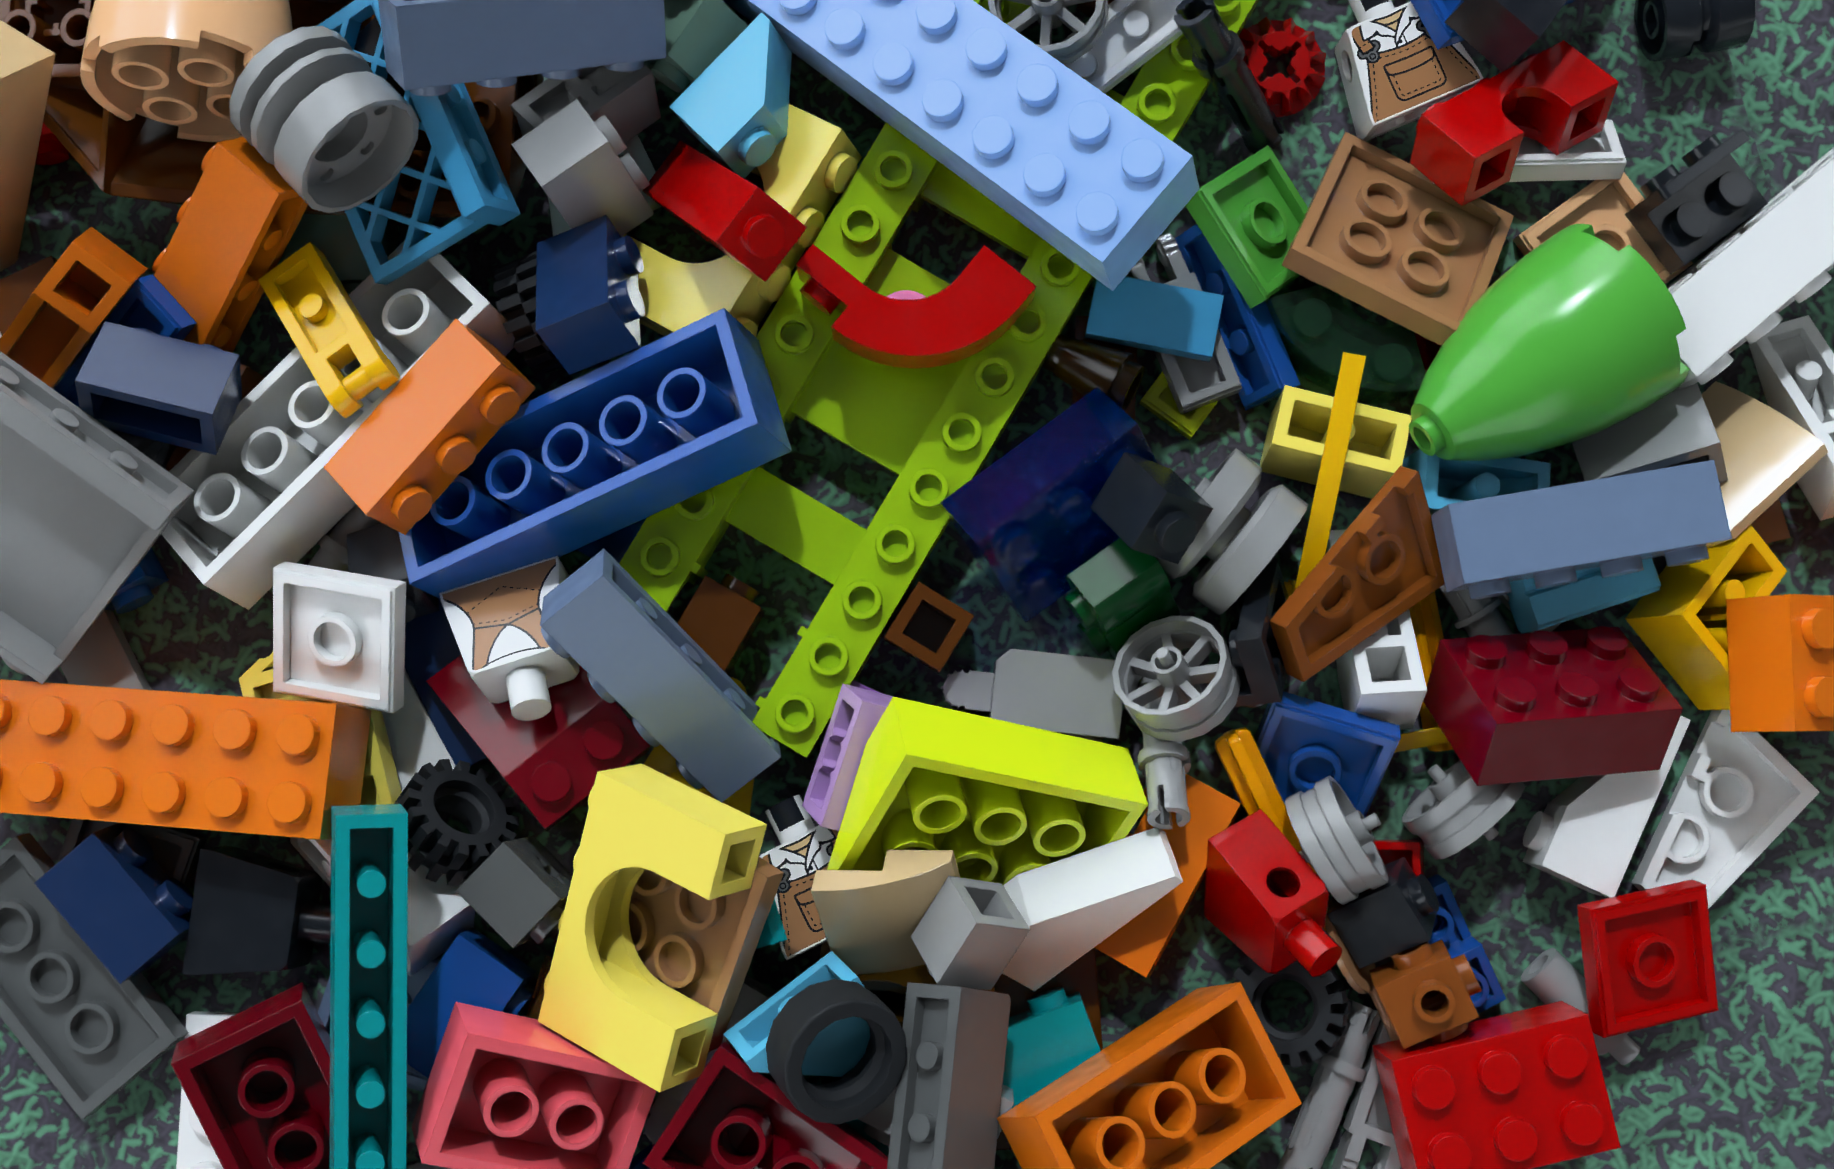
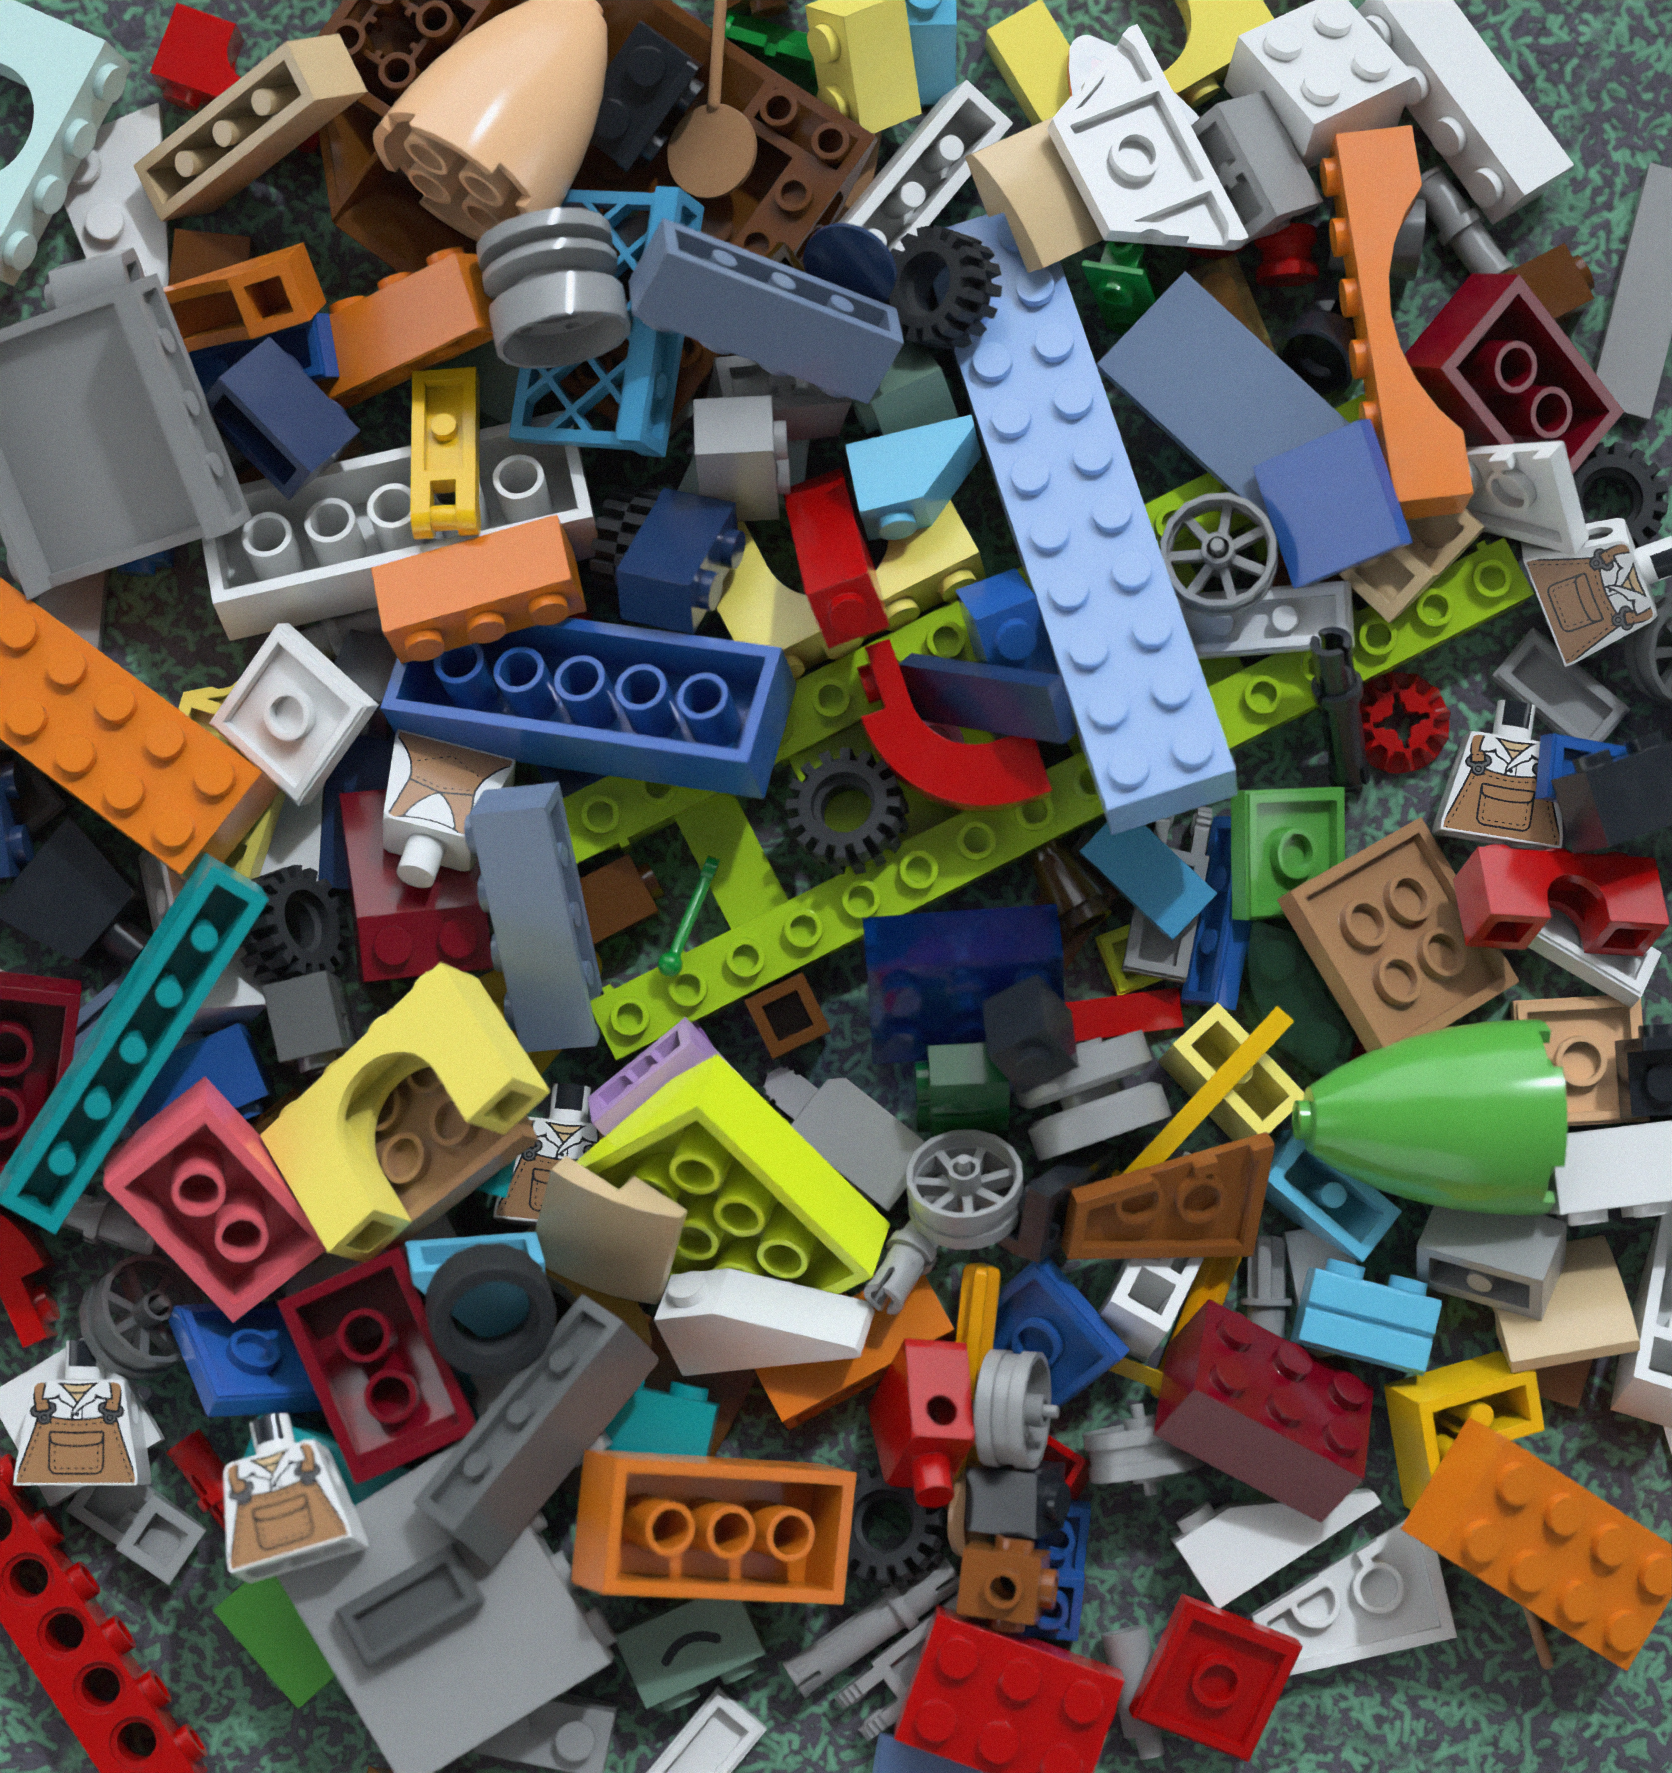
camera: 35 degrees right, 0 degrees up
(800, 645) = (670, 963): none -> green hinge
(844, 395) = (828, 781): none -> black tyre
(923, 191) = (1006, 623): none -> blue brick
(935, 238) = (989, 697): none -> dark blue tile
(969, 933) = (658, 1286): light grey brick -> none
(1212, 444) = (1126, 1014): none -> red piece
(1581, 527) = (1378, 1277): sand blue brick -> none

